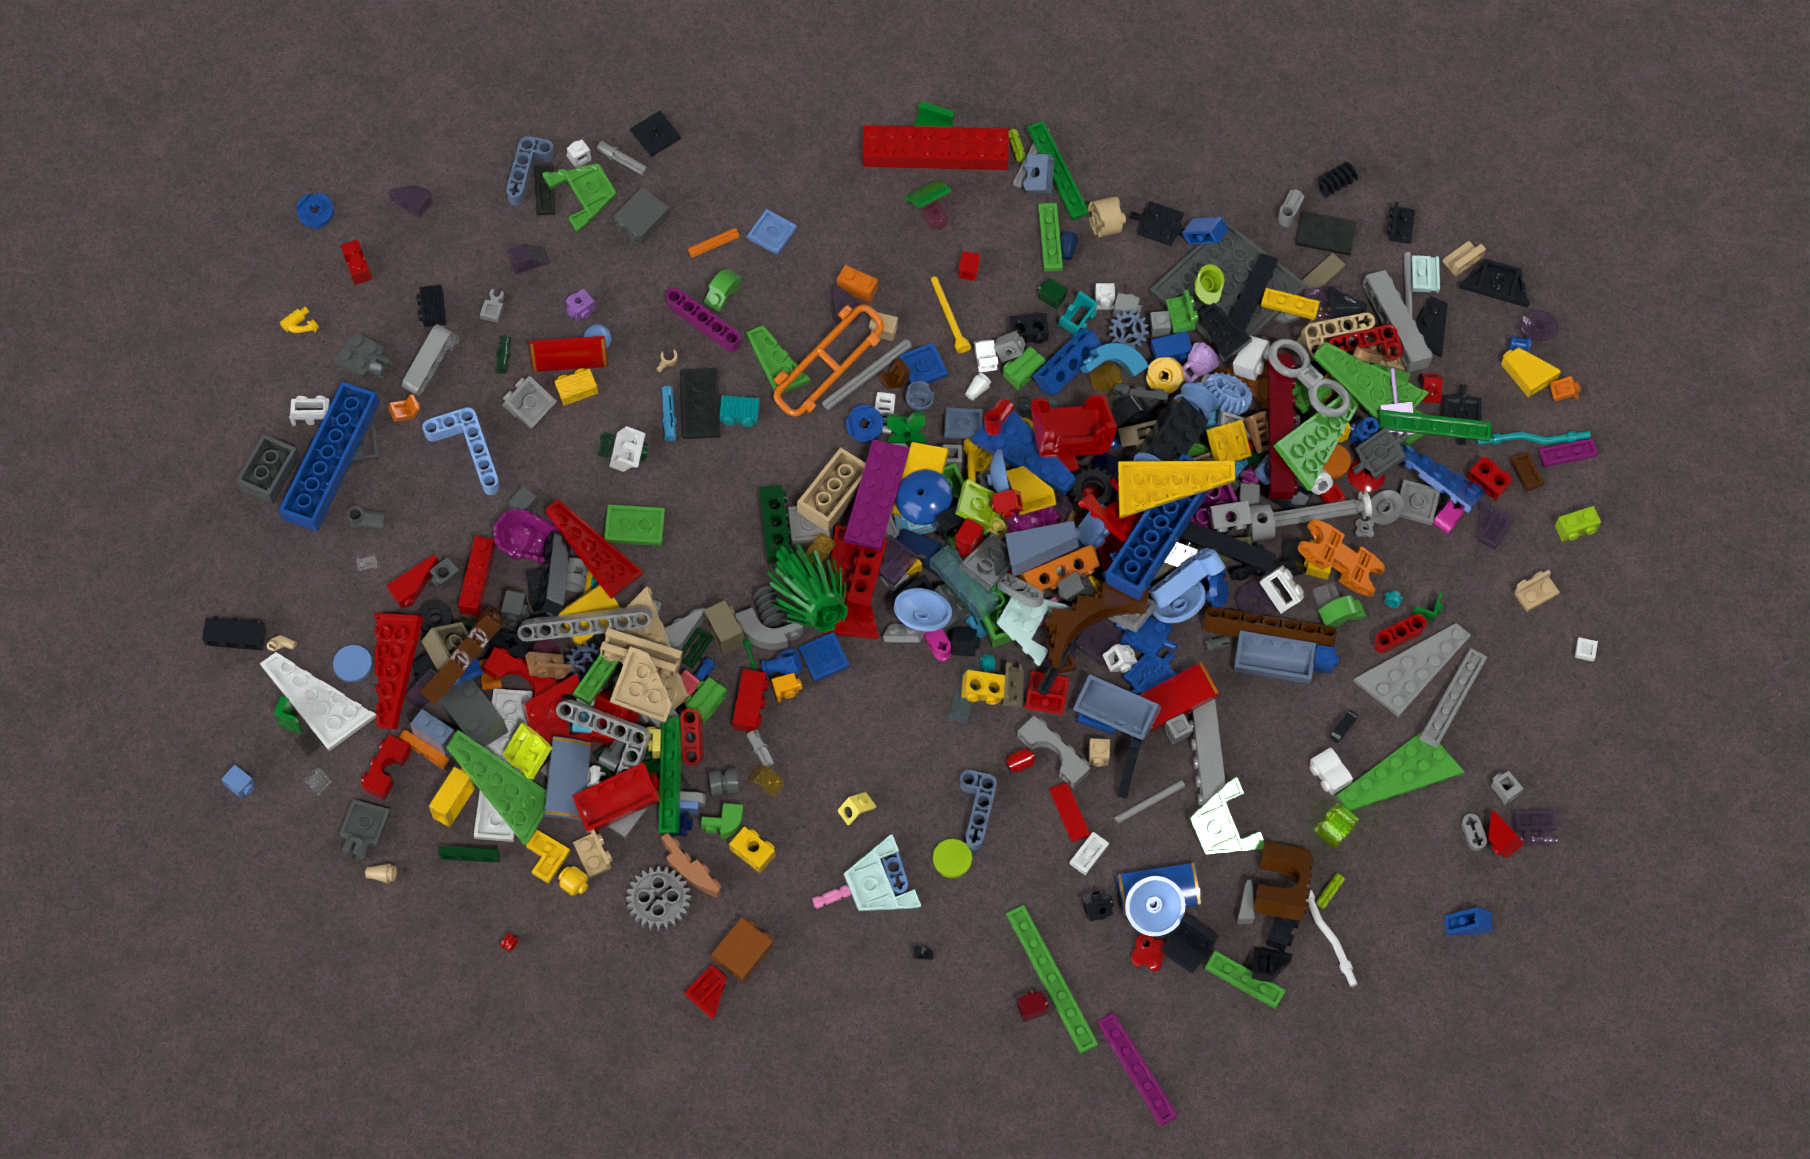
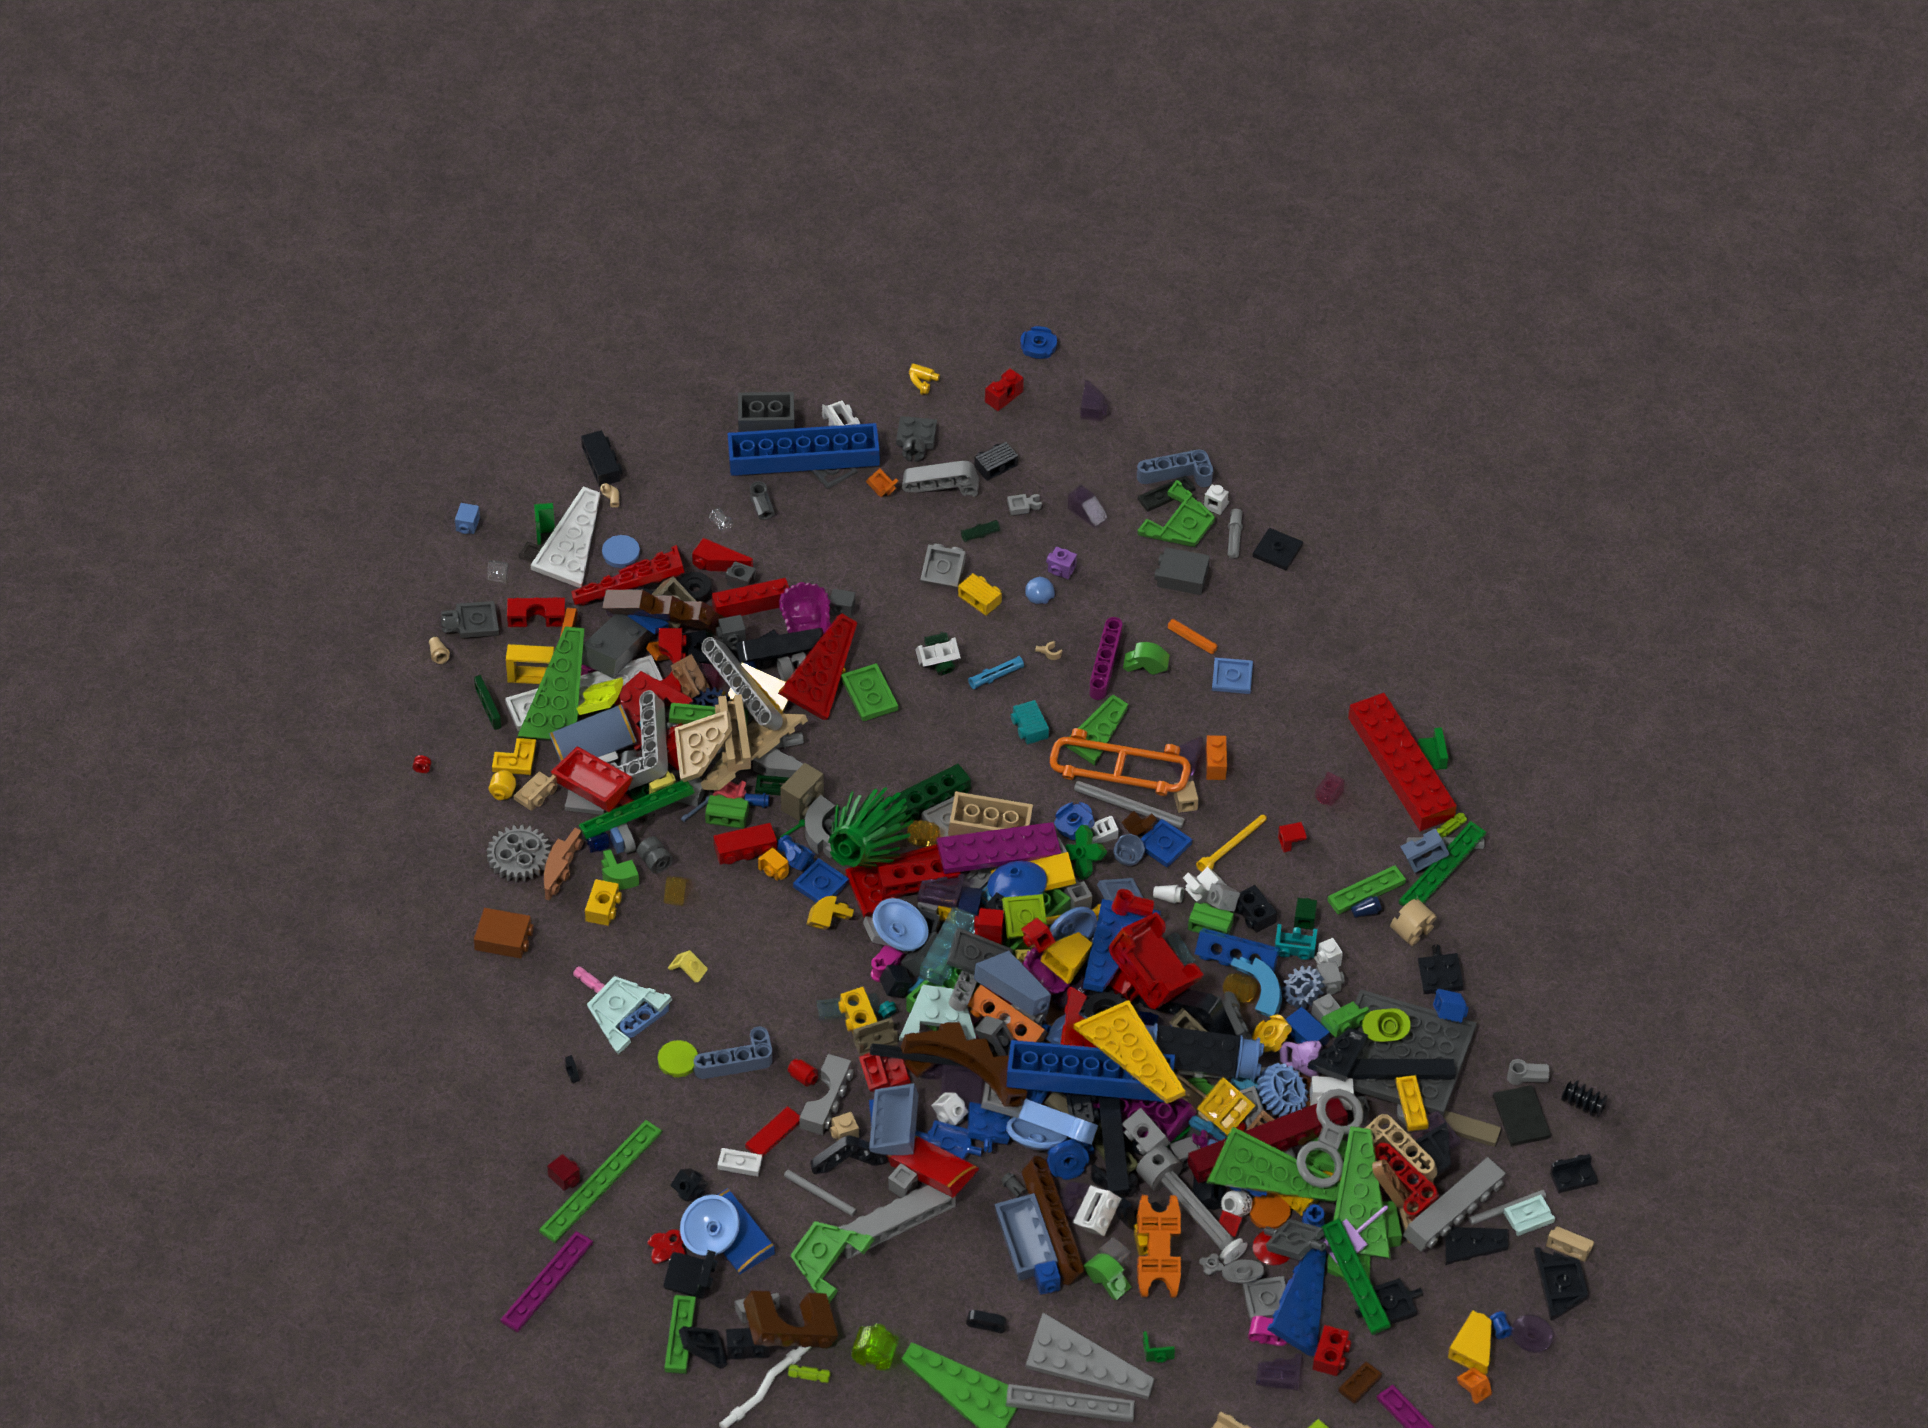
camera: 65 degrees right, 15 degrees down
(432, 731) = (582, 616): sand blue brick -> none
(474, 443) = (892, 535): light blue beam -> none
(568, 353) = (1006, 572): red slope -> none
(687, 745) = (683, 811): red beam -> none
(700, 403) = (1035, 685): pearl dark grey tile -> none
(707, 991) = (451, 924): red wing -> none
(760, 748) = (704, 871): light grey axle -> none
(860, 666) = (824, 909): none -> yellow brick
(927, 193) = (1345, 772): green slope -> none
(1330, 771) = (932, 1326): white brick -> none
(1395, 597) = (1148, 1315): teal plate -> none
(1405, 627) = (1109, 1324): red beam -> none
(1432, 384) = (1403, 1264): red bracket -> none
(1497, 438) = (1423, 1407): teal bar -> none

